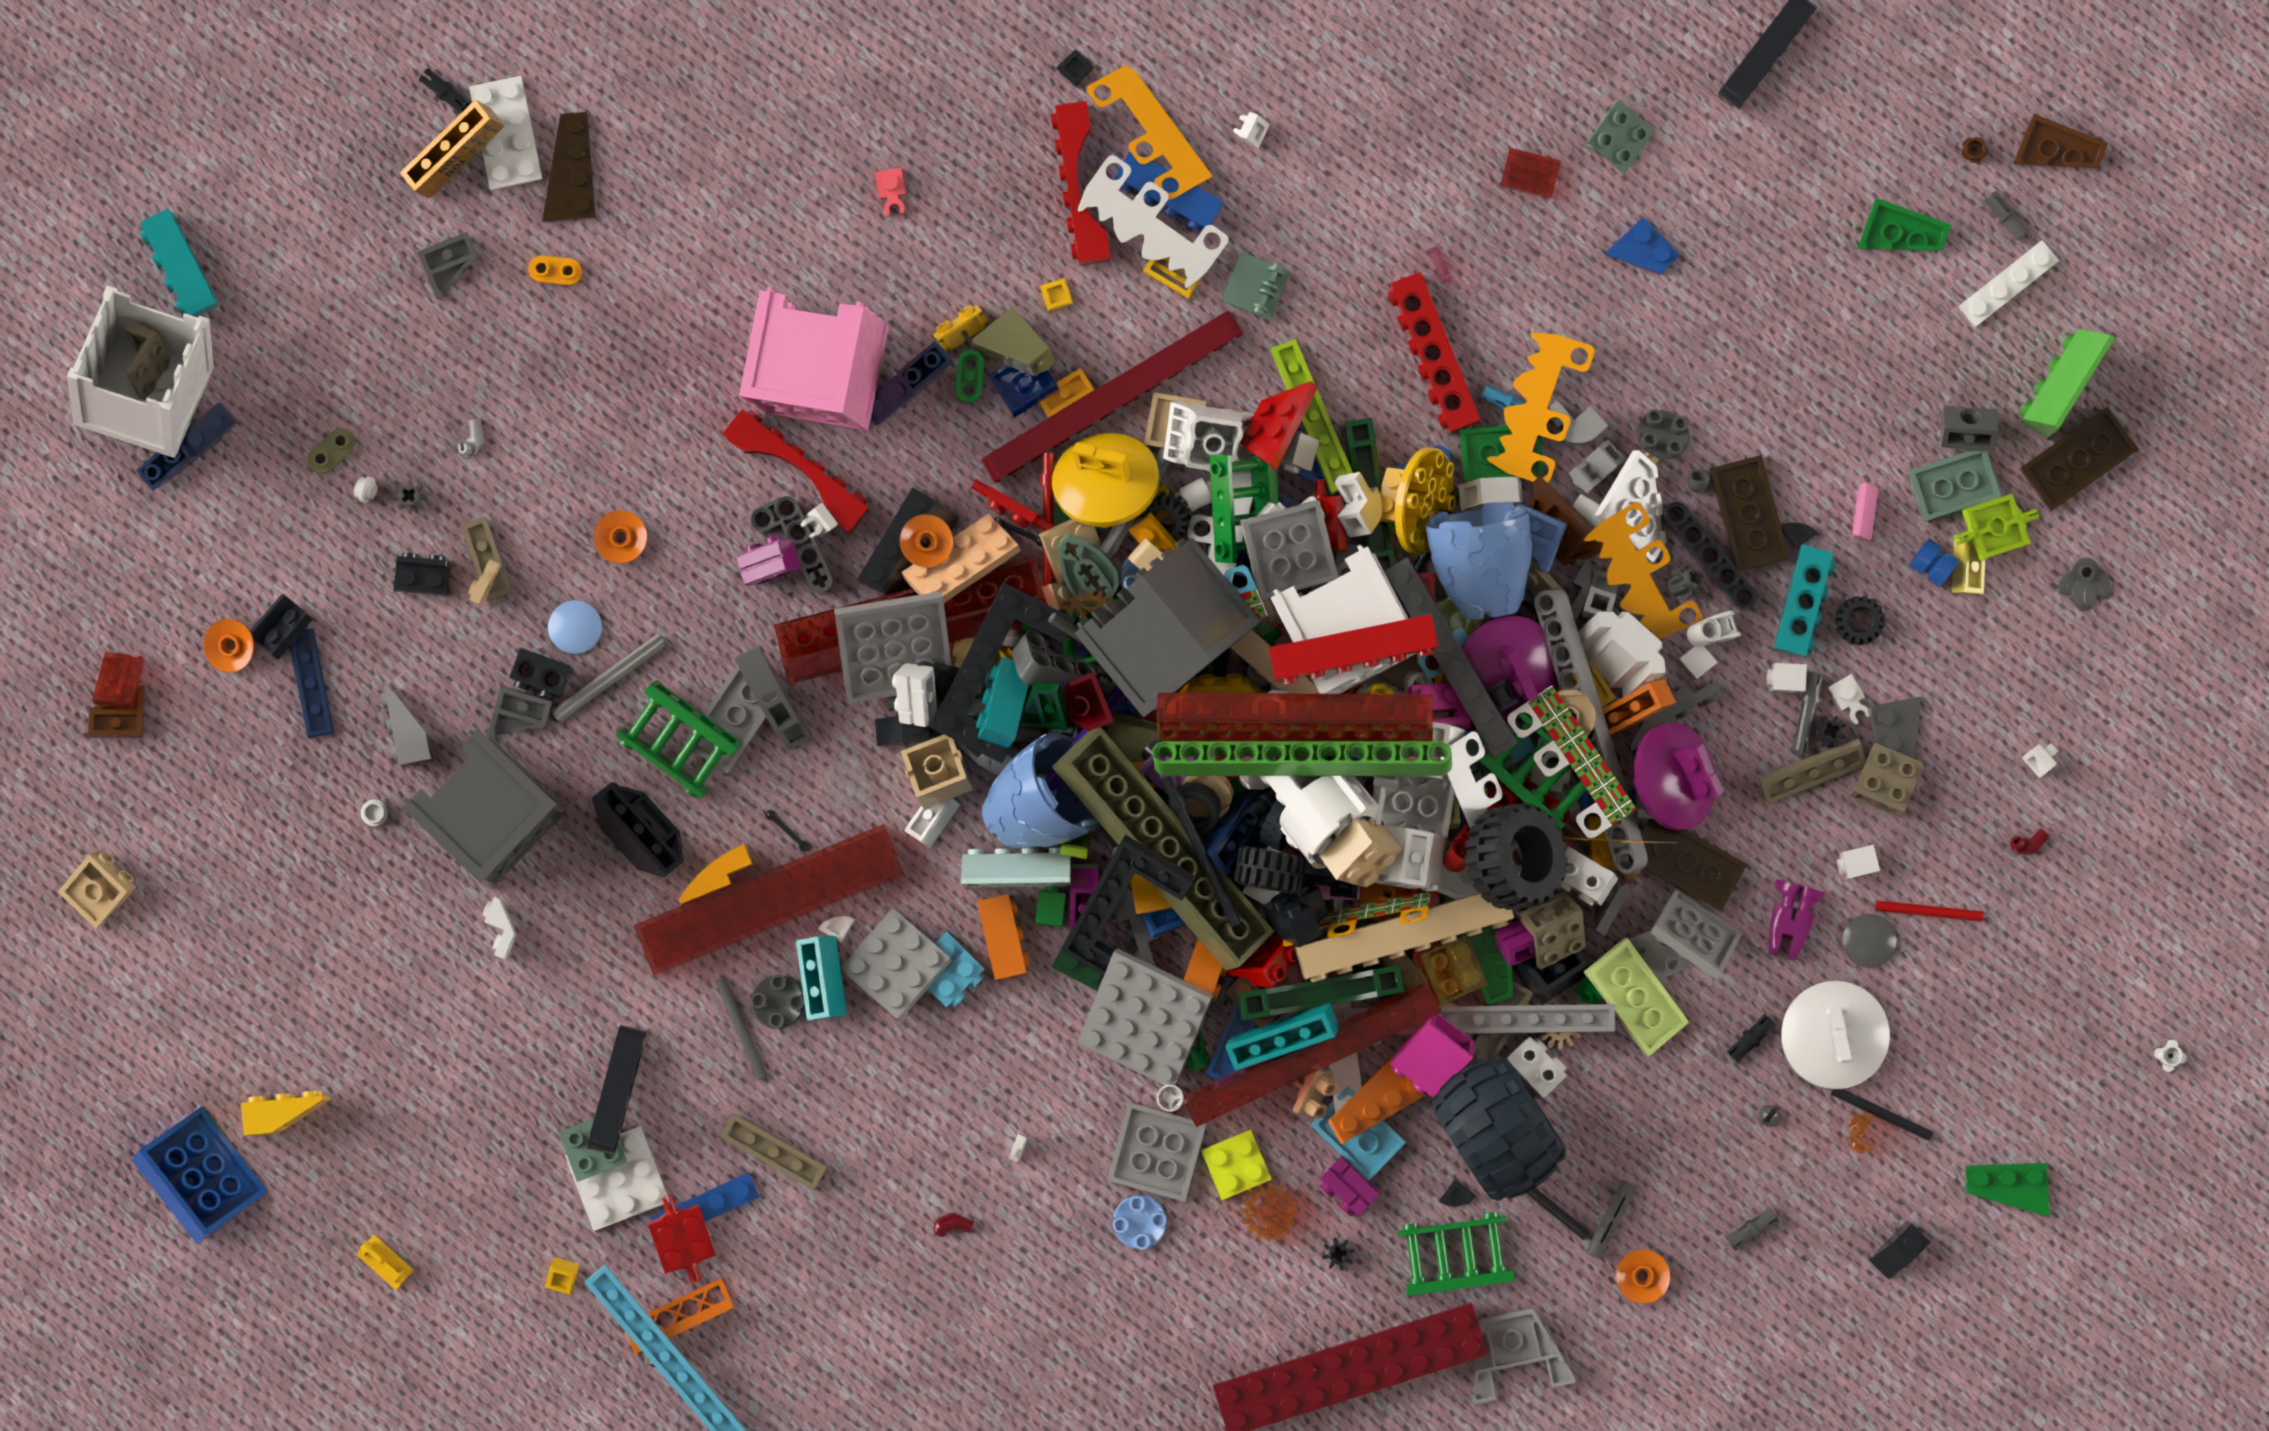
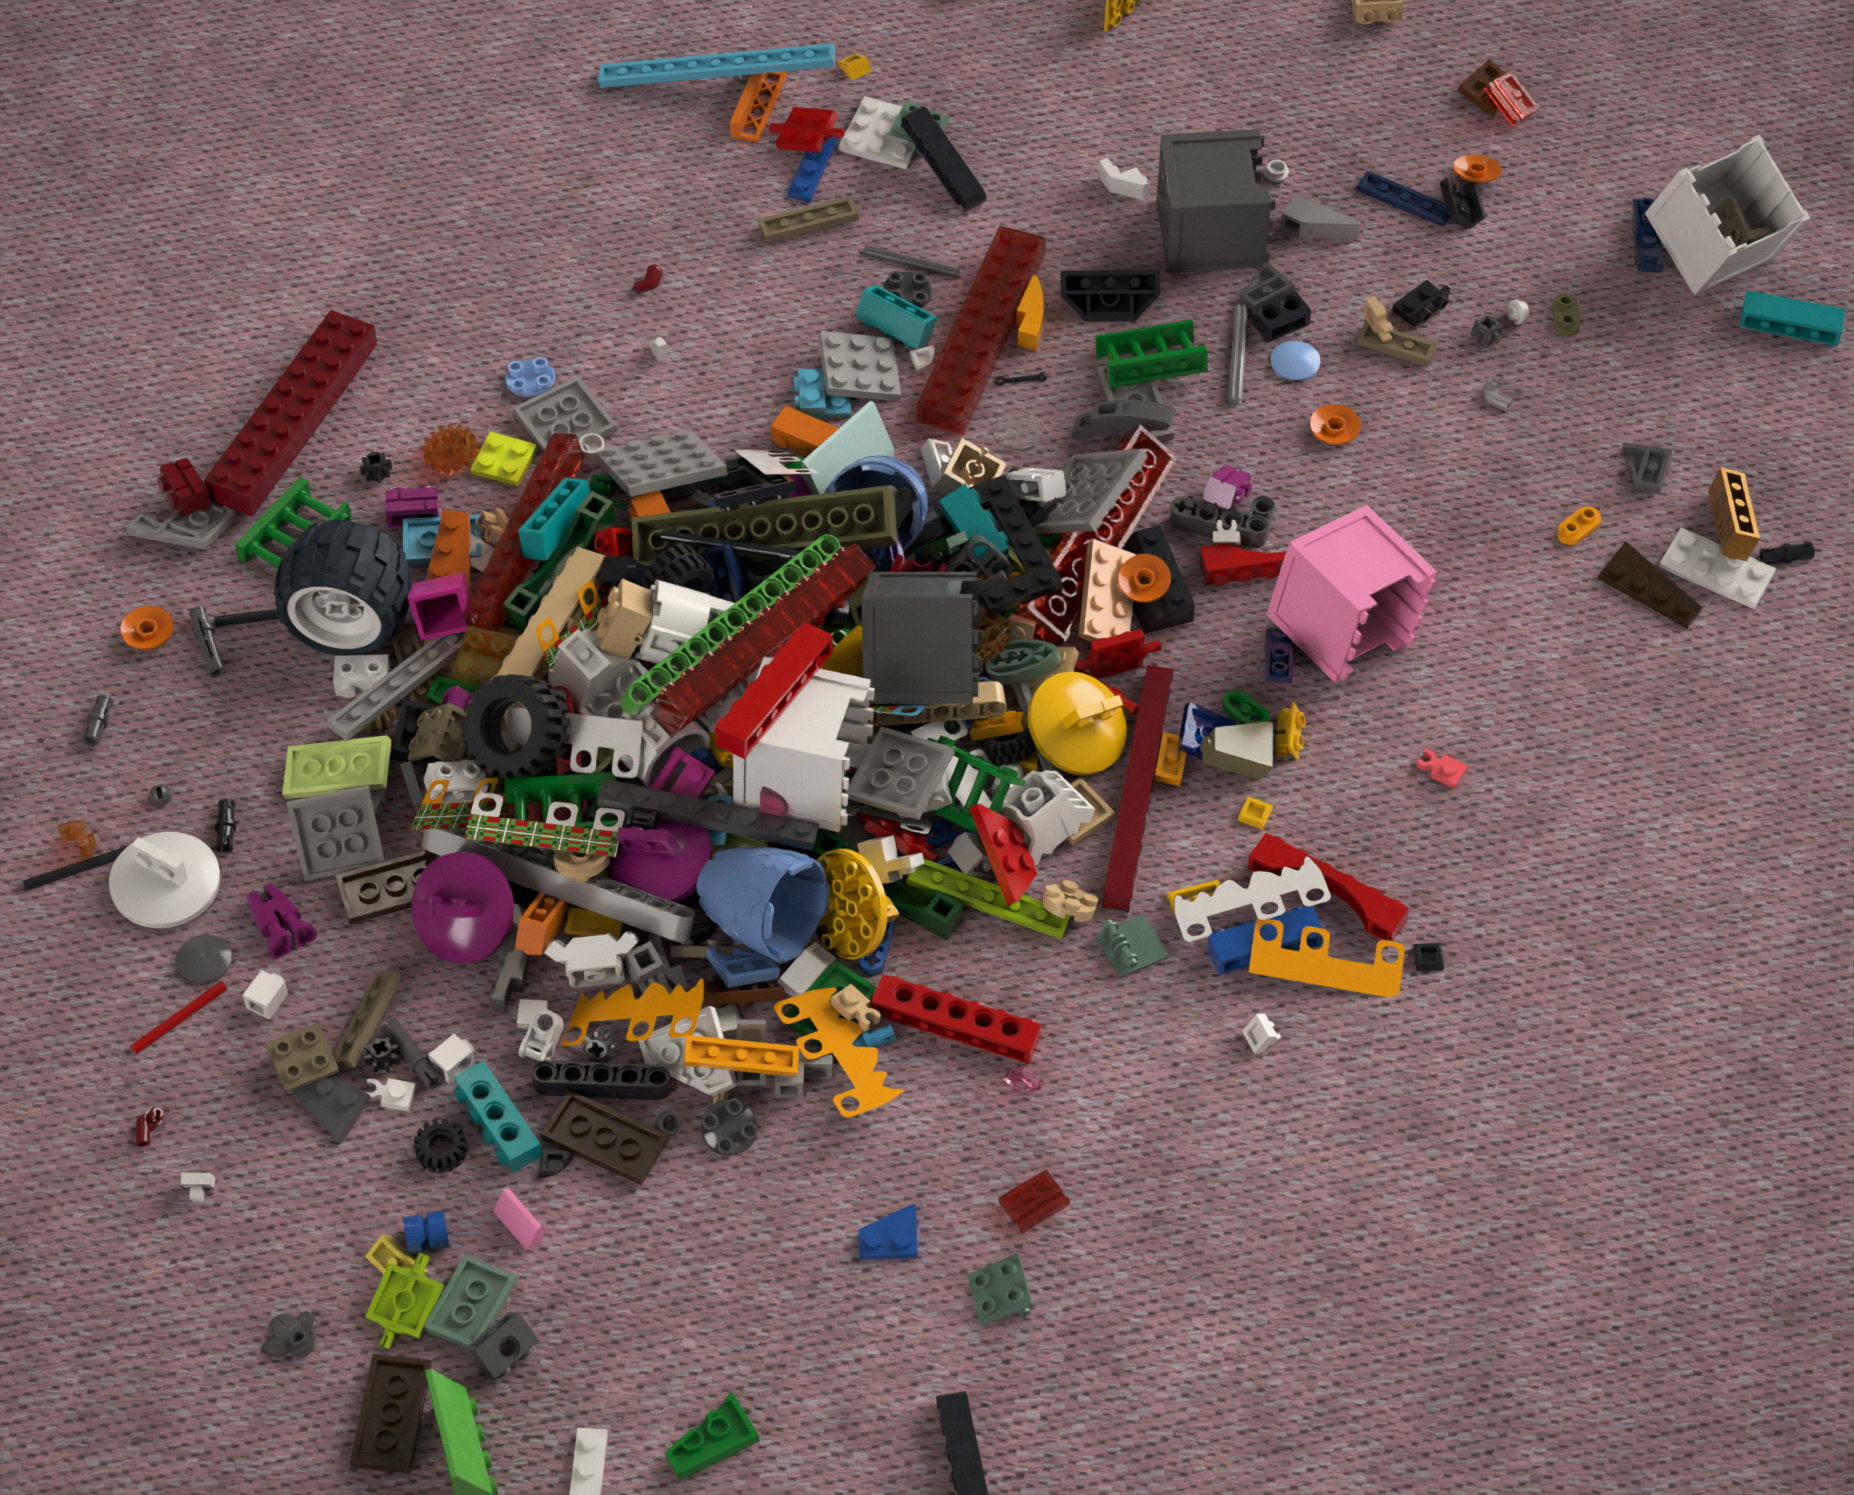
camera: 130 degrees right, 30 degrees down
(1080, 930) = (769, 464): none -> white piece
(1251, 355) = (1069, 900): none -> tan plate
(1406, 608) = (773, 802): none -> clear pink tile
(1494, 431) = (854, 1004): none -> tan plate
(1501, 1375) = (183, 487): none -> dark red brick
(1618, 458) = (741, 1055): none -> light orange plate

